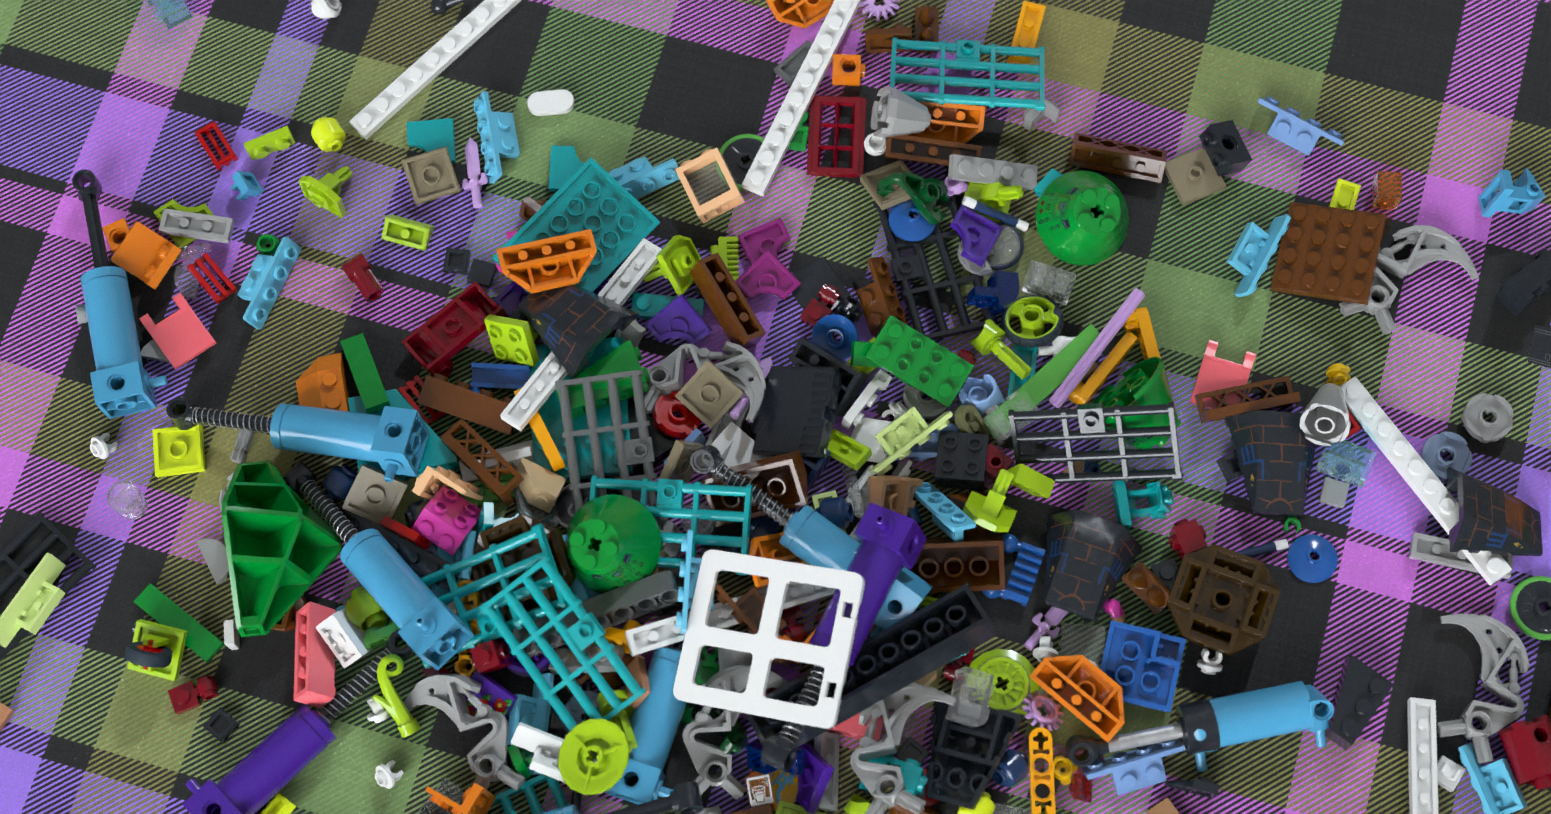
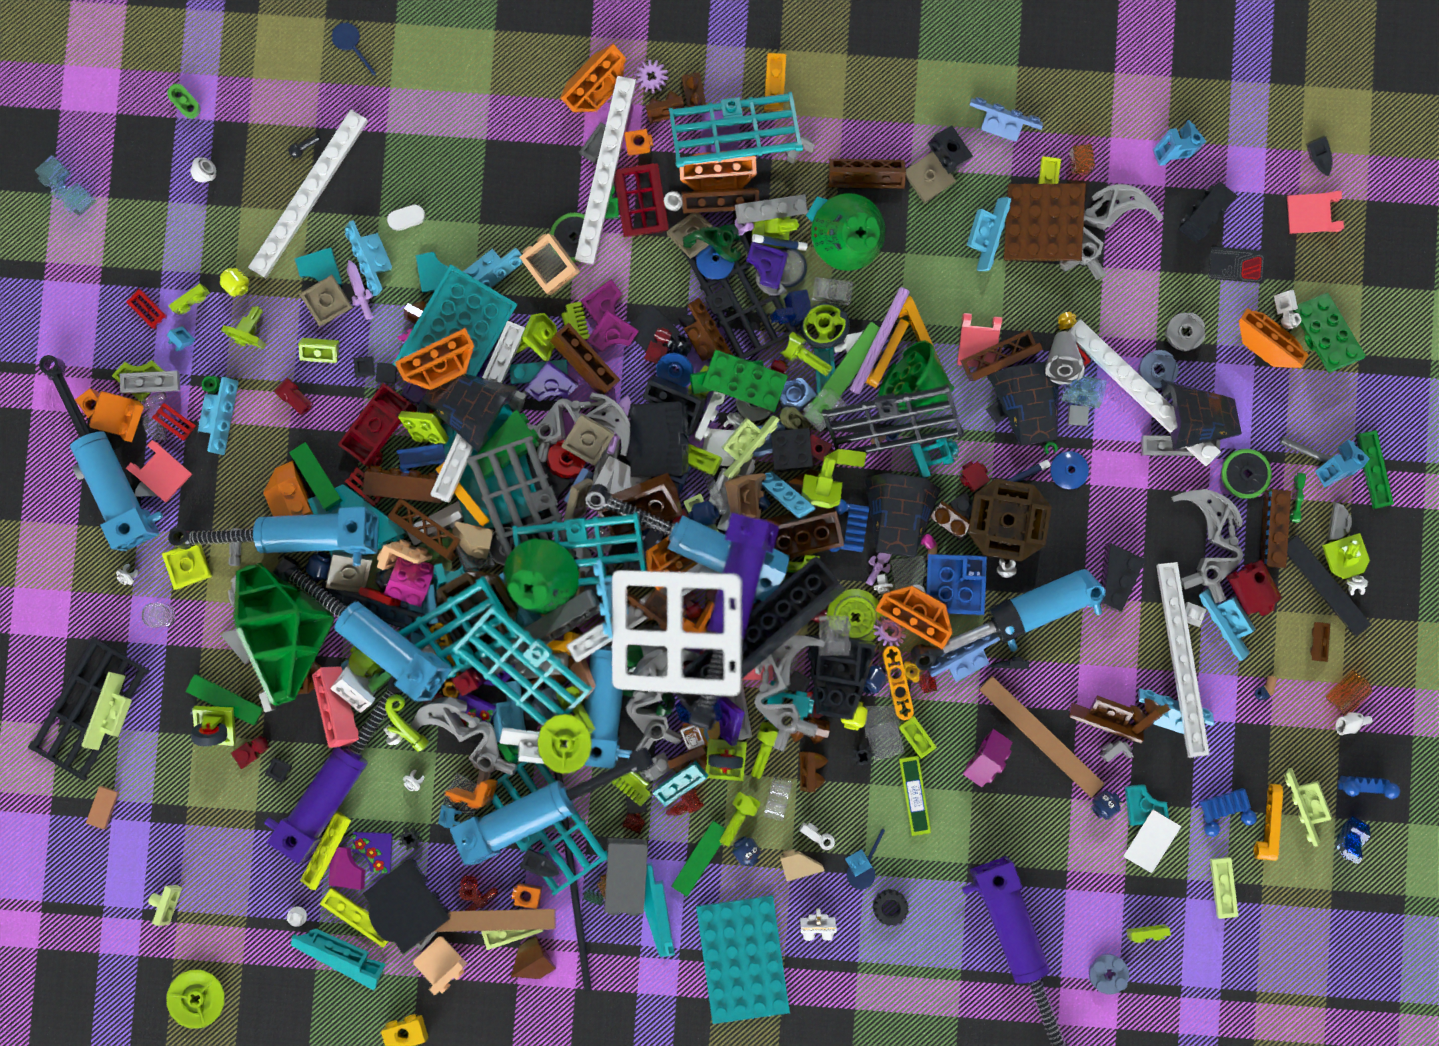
camera: 10 degrees left, 15 degrees up
(898, 114) = (687, 179): light grey cone -> none

